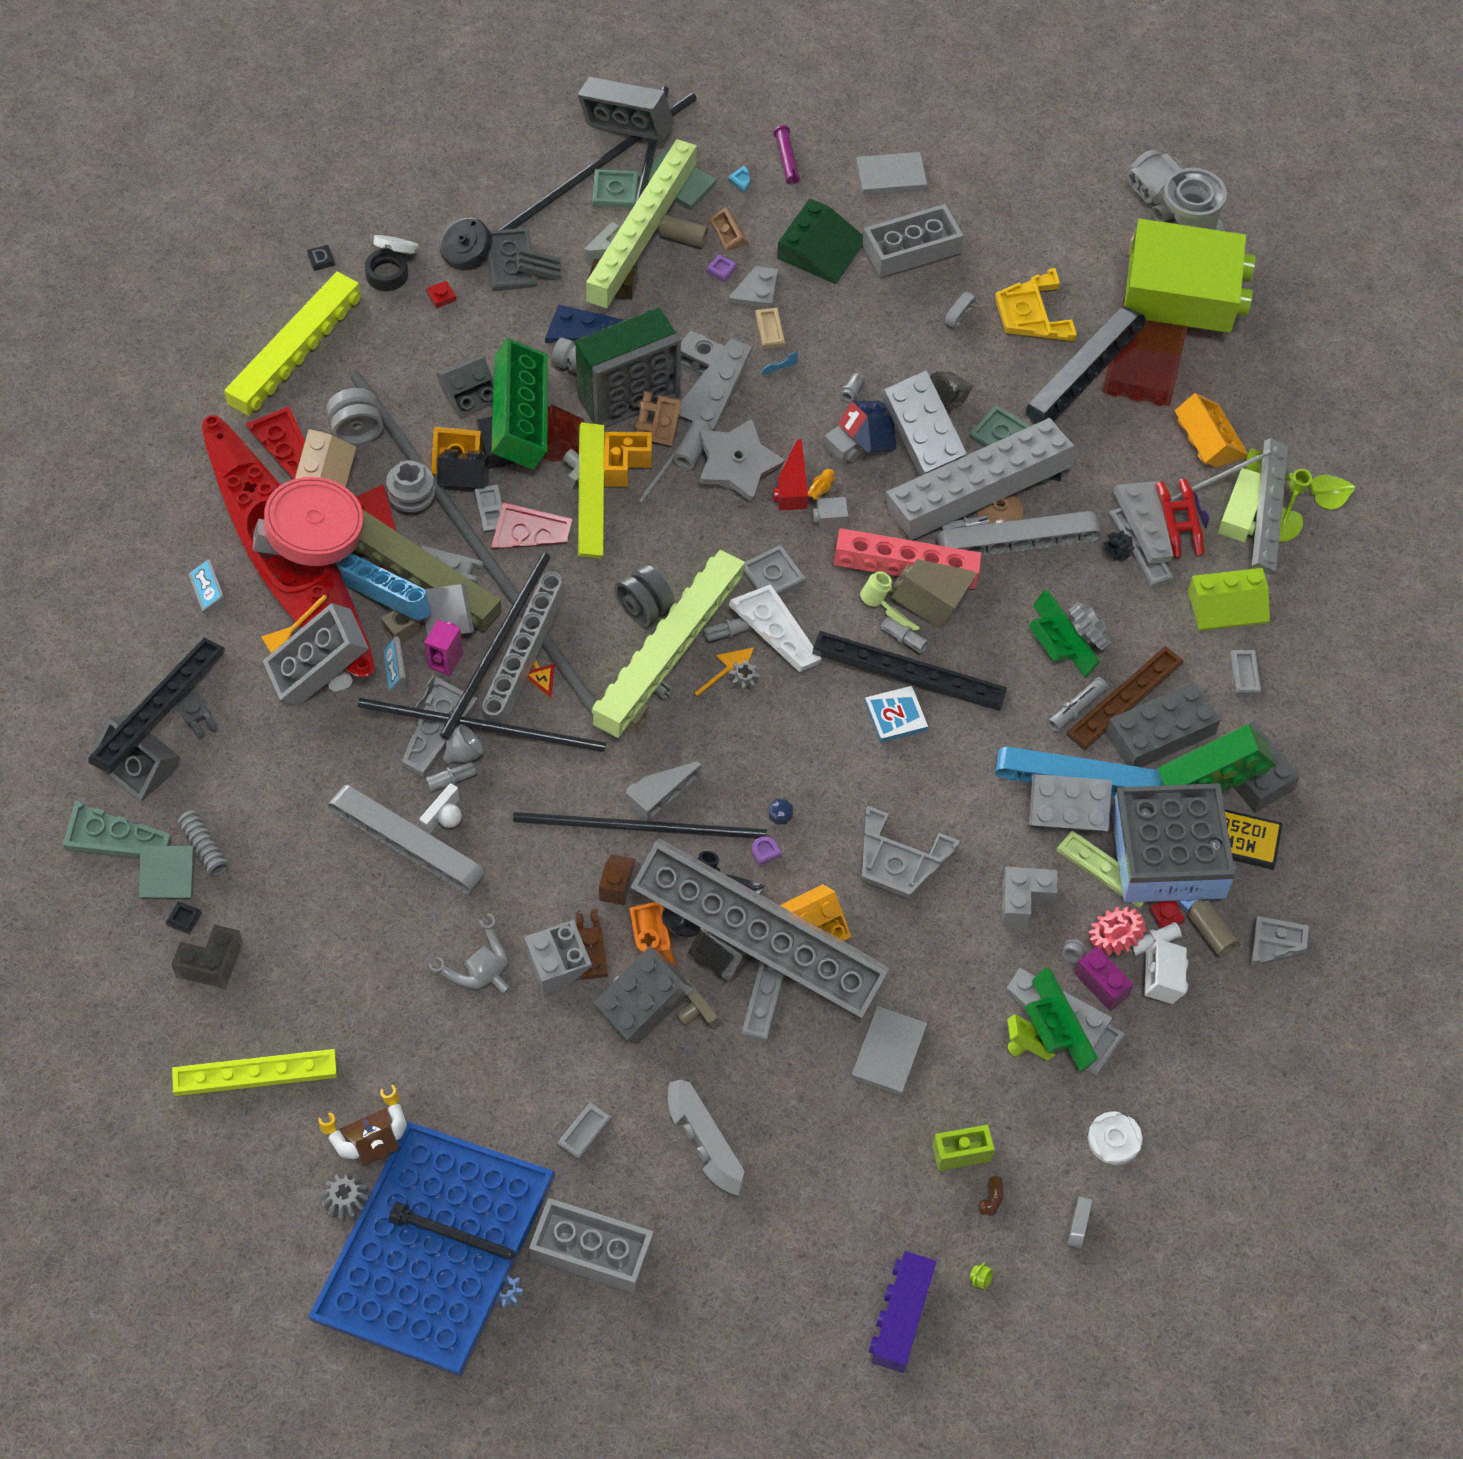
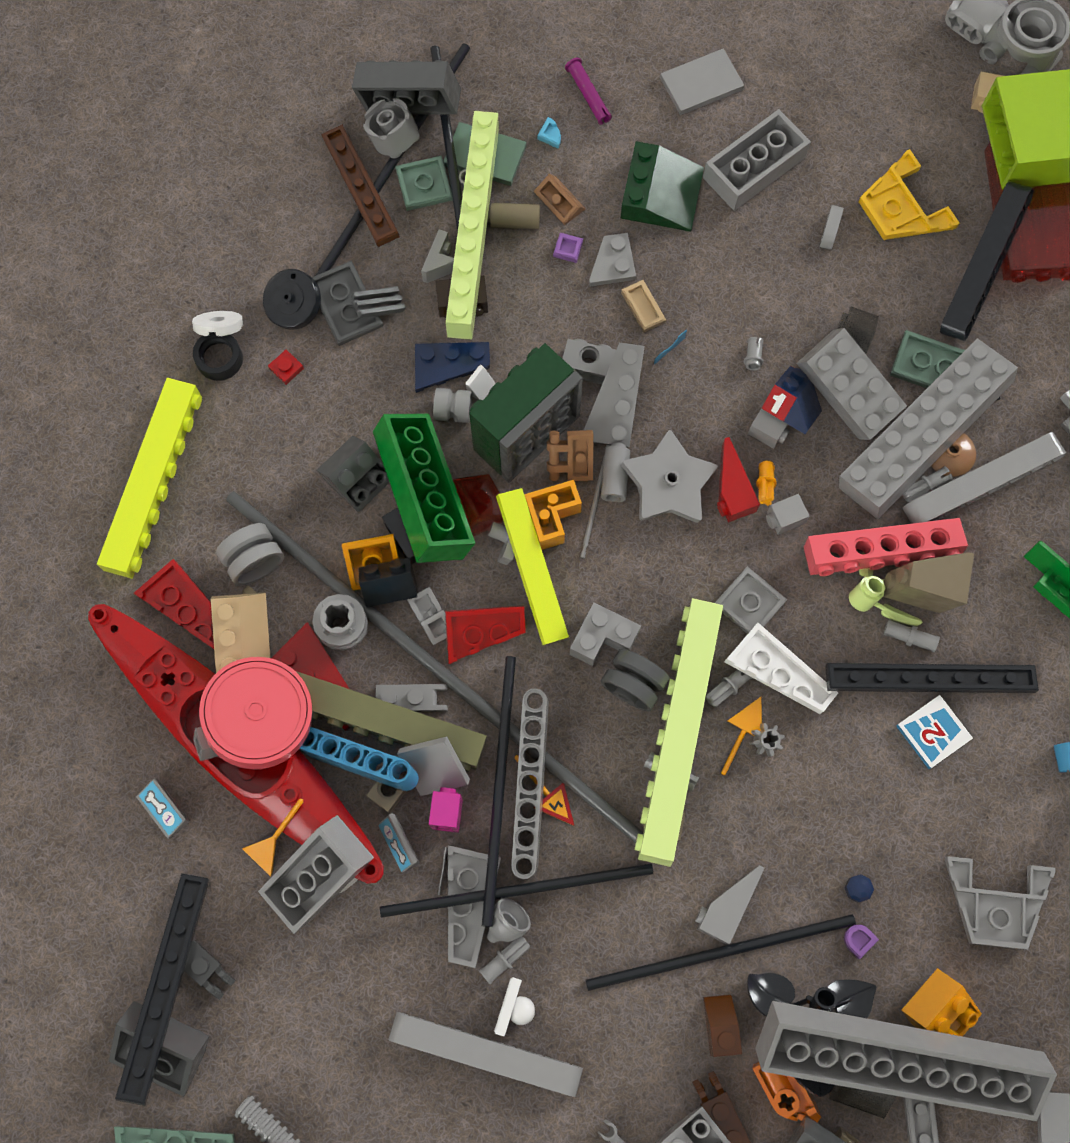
camera: 15 degrees left, 15 degrees up
(320, 257) = (141, 360): black tile -> none
(558, 175) = (360, 186): none -> reddish brown tile
(601, 136) = (391, 127): none -> light grey brick
(629, 554) = (602, 628): none -> light grey brick

